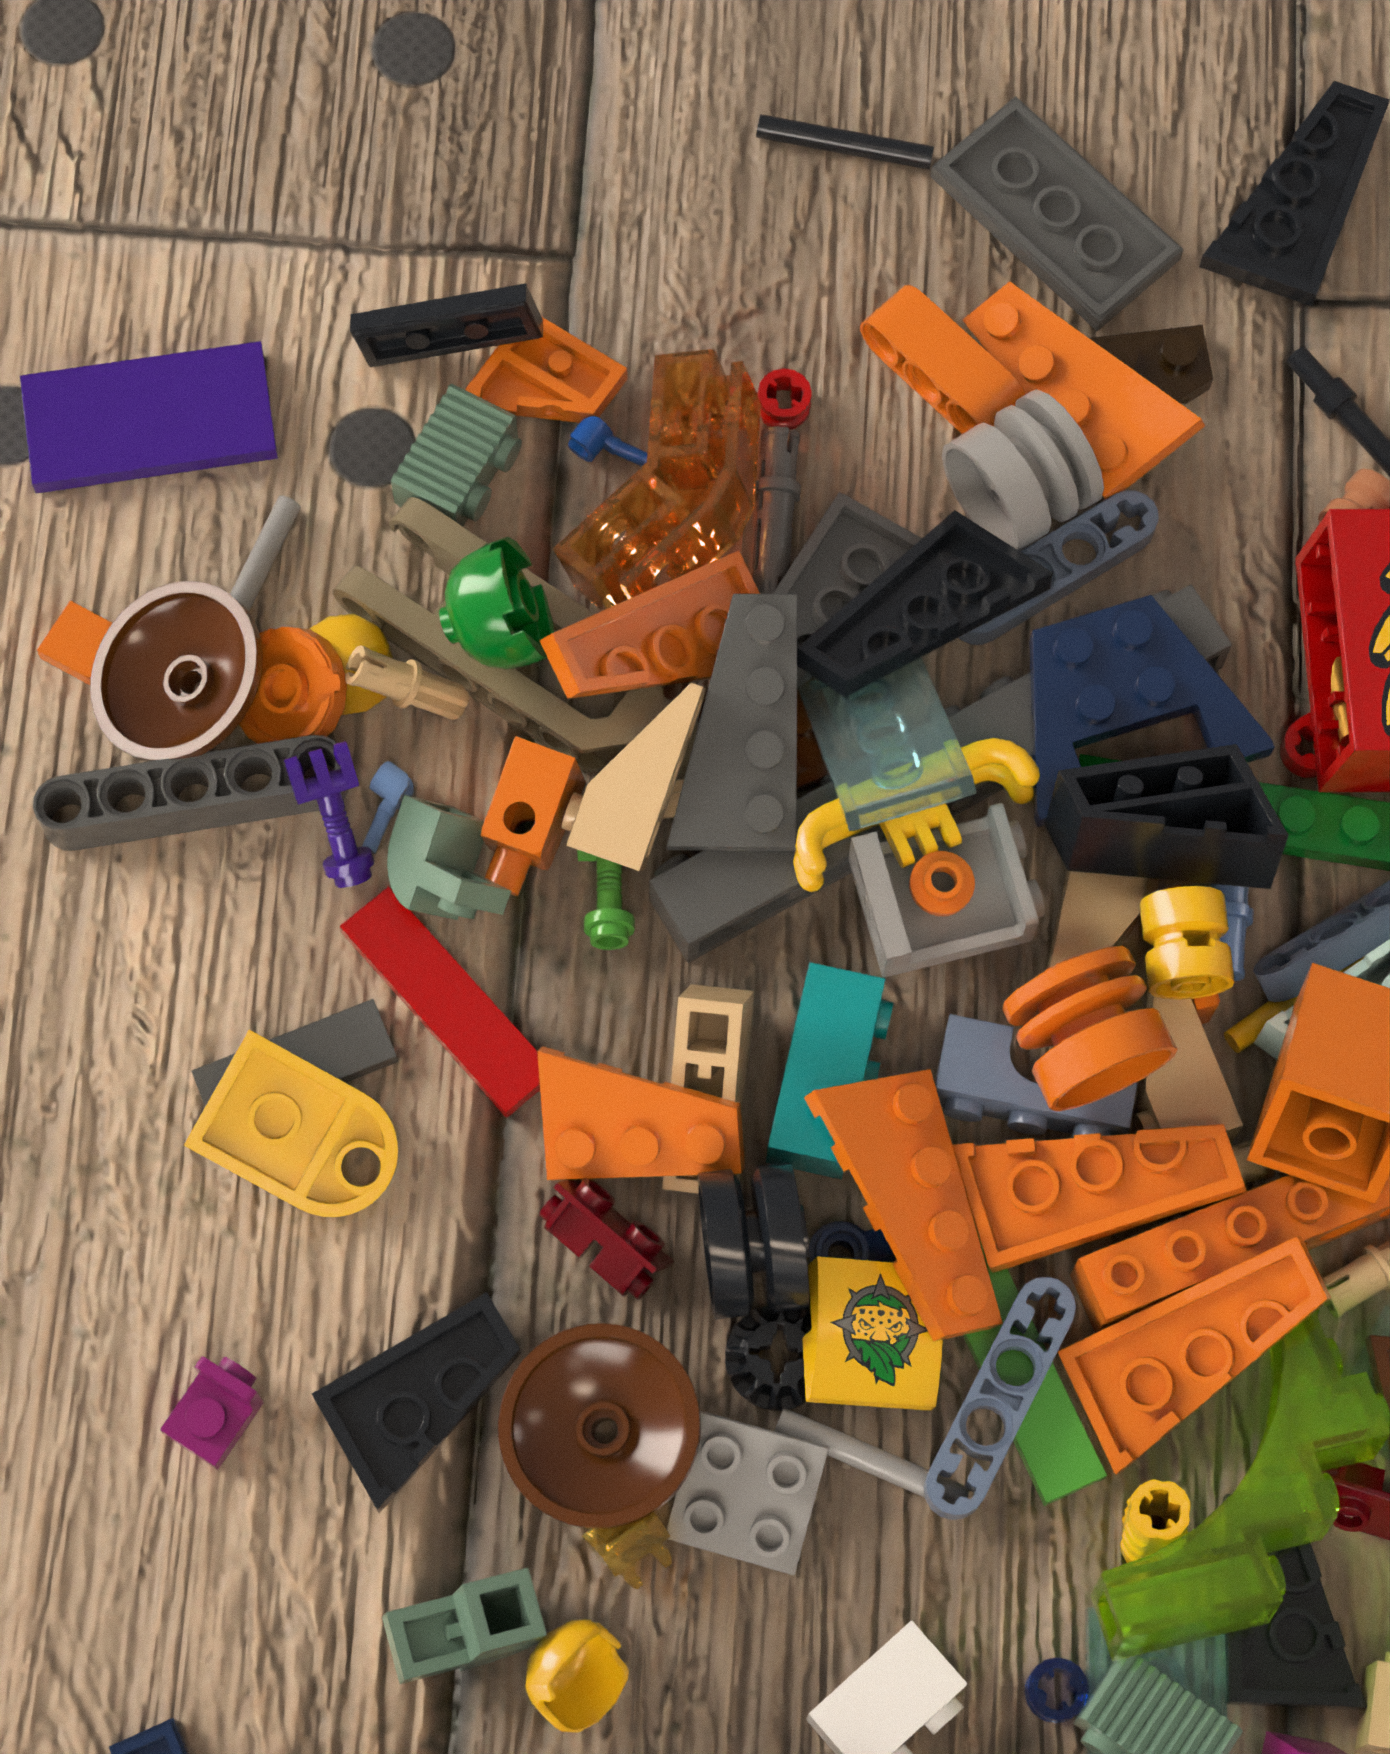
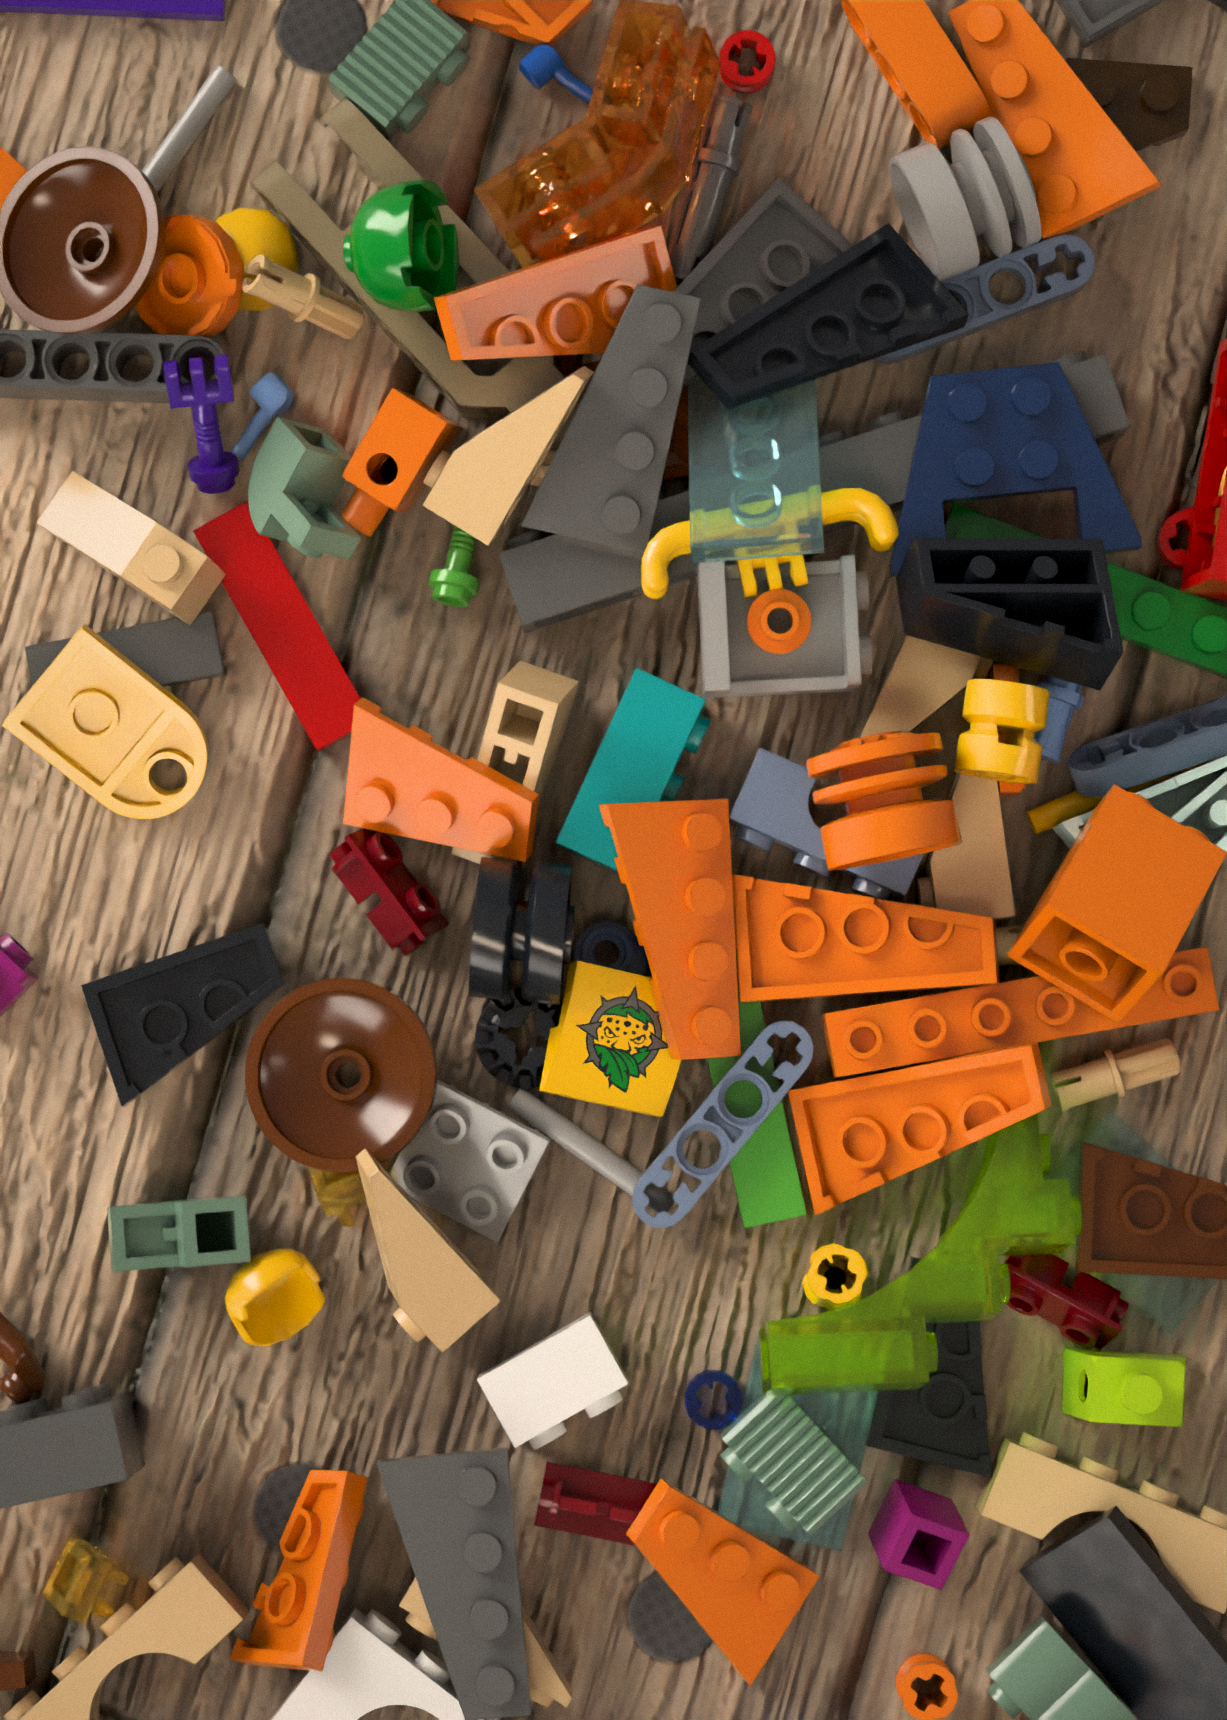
camera: 15 degrees right, 15 degrees up
(285, 951) = (132, 547): none -> tan slope
(721, 1602) = (423, 1268): none -> tan slope

